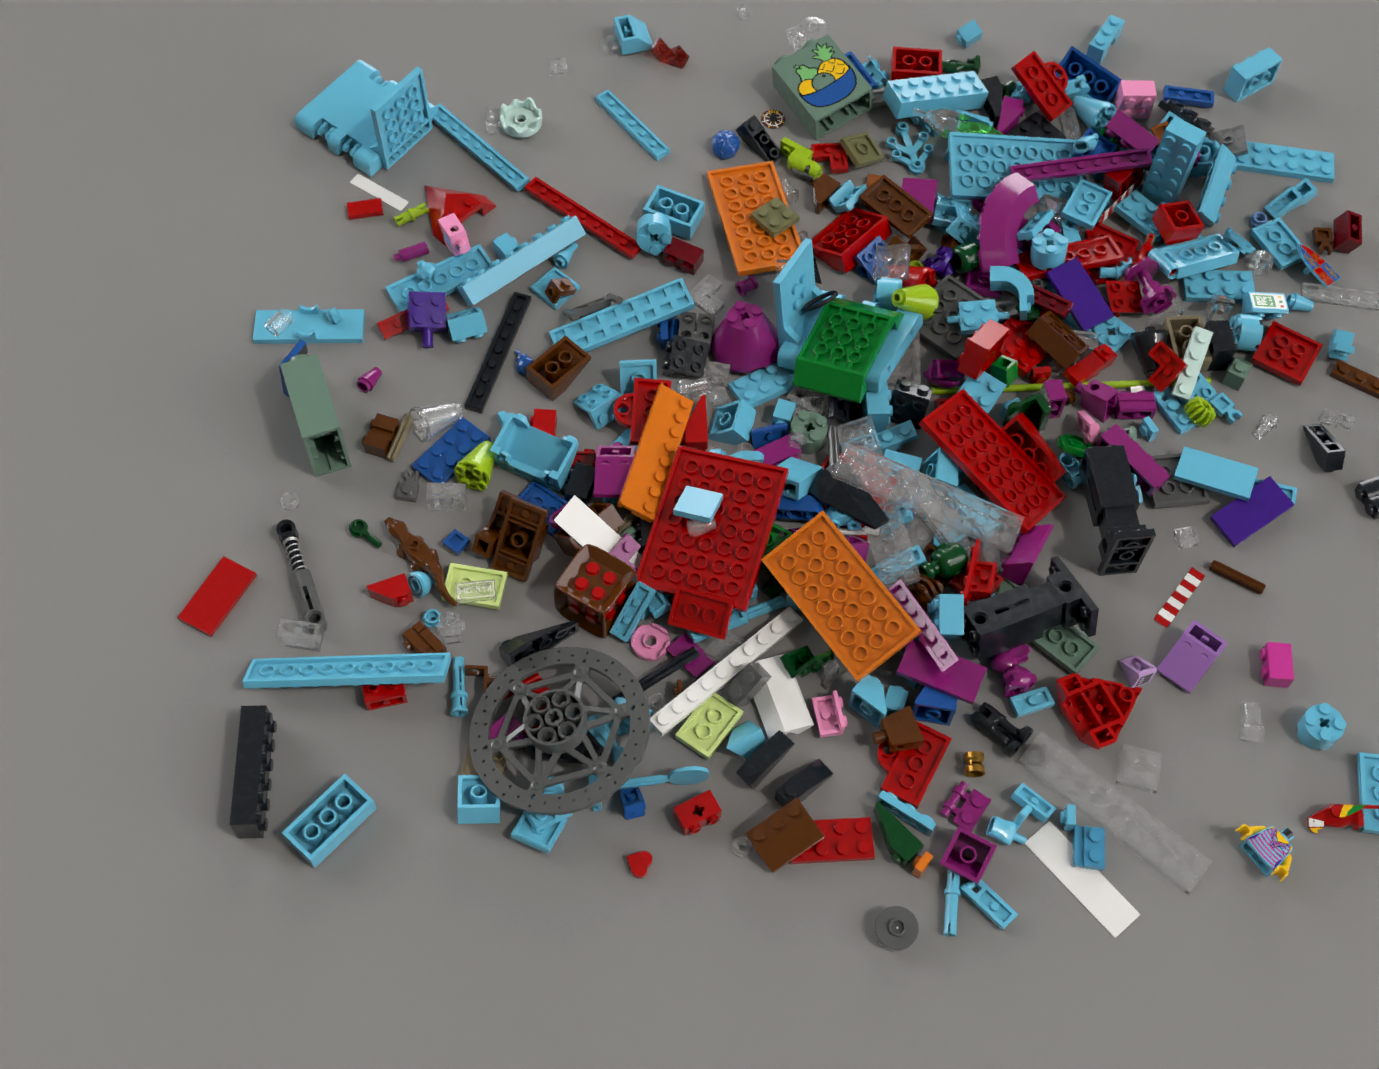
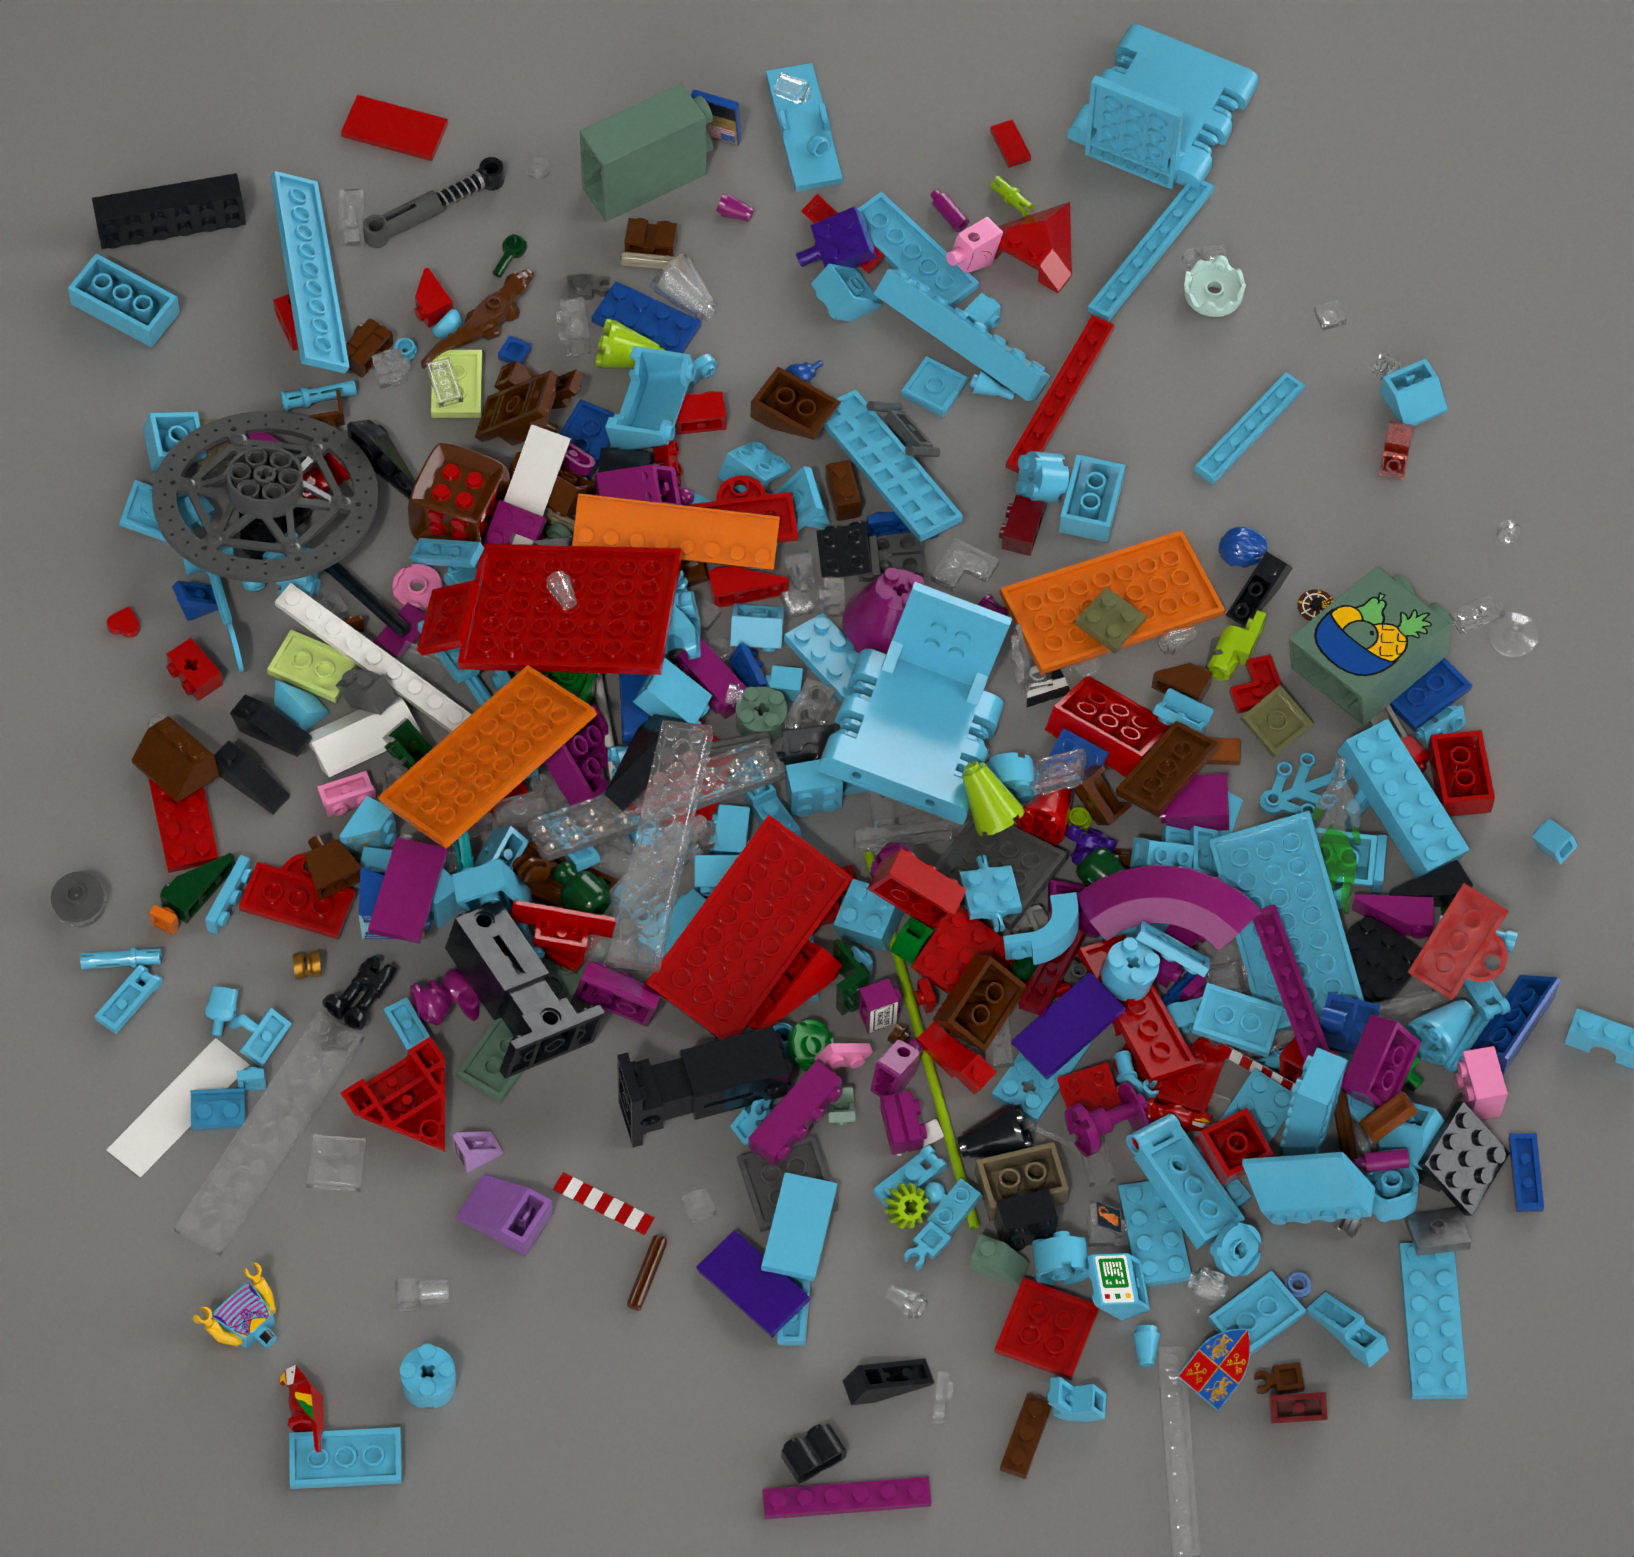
camera: 80 degrees right, 0 degrees up
(379, 192) = (1046, 154): white sticker -> none
(425, 269) = (912, 225): medium azure piece -> none
(497, 353) = (815, 342): black tile -> none
(559, 287) = (924, 386): reddish brown bracket -> none
(631, 350) = (843, 490): none -> reddish brown brick
(698, 504) = (589, 579): medium azure tile -> none
(807, 308) = (964, 681): black tyre -> none
(843, 348) = (886, 715): green slope -> none
(909, 402) = (835, 824): black bracket -> none
(930, 635) = (461, 856): plate -> none
(956, 66) = (1492, 834): dark green piece -> none
(968, 855) = (181, 965): magenta slope -> none
(972, 809) = (246, 971): magenta plate -> none
(1086, 143) = (1341, 999): medium azure piece -> none
(1148, 429) = (864, 1142): medium azure plate -> none
(1170, 366) = (962, 1148): red plate -> none
(1194, 358) = (975, 1178): light aqua plate -> none
(1252, 74) = (1589, 1256): medium azure brick -> none
(1277, 664) = (515, 1322): dark pink brick -> none

